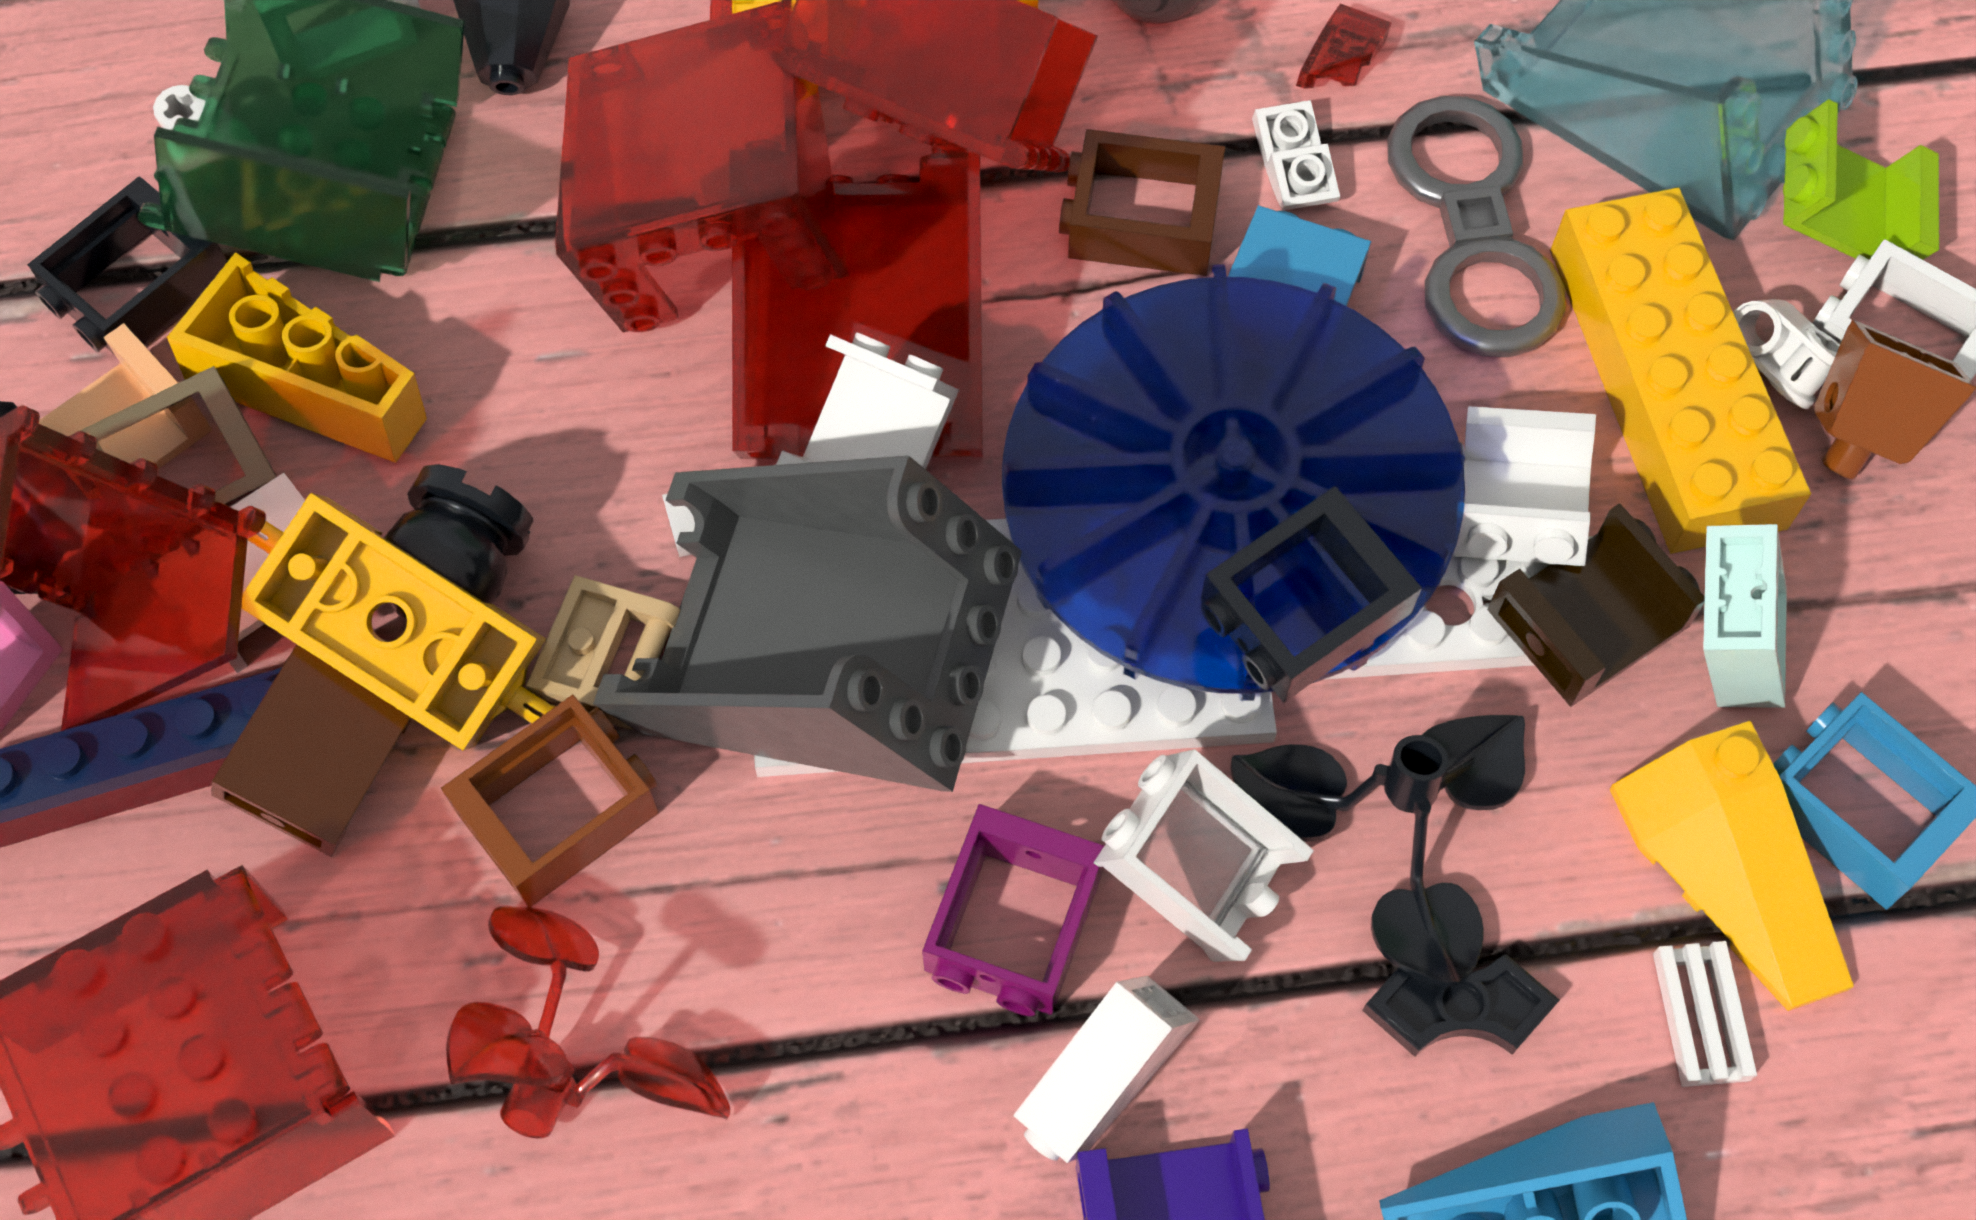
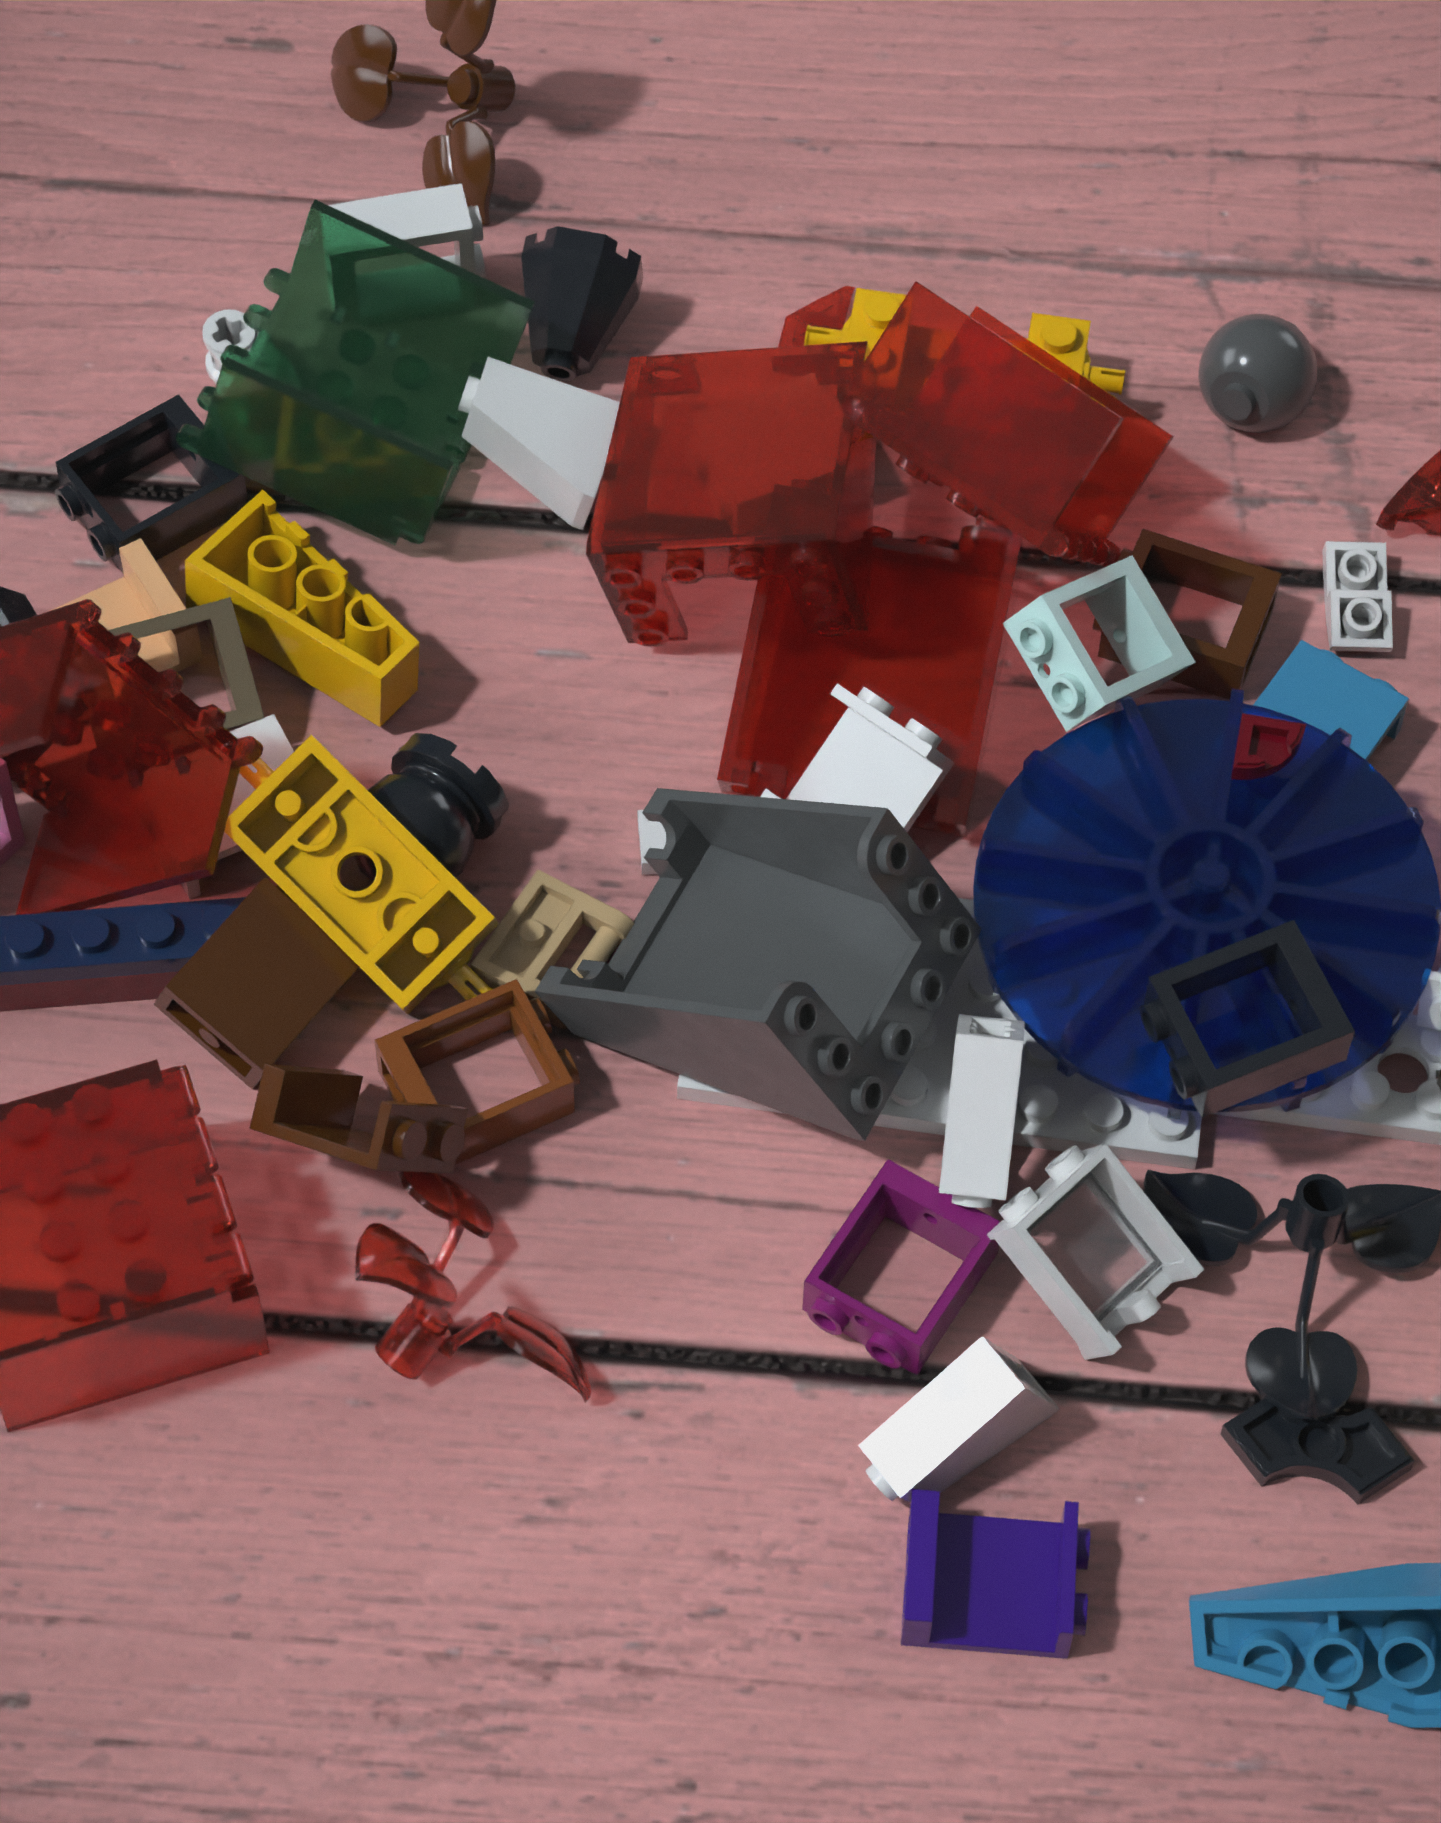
camera: 10 degrees right, 5 degrees down
(395, 885) = (318, 1109): none -> reddish brown panel
(496, 147) = (541, 434): none -> white slope
(1063, 736) = (981, 1110): none -> white window
(1099, 221) = (1131, 622): none -> light aqua window
(1258, 315) = (1265, 746): none -> dark red tile

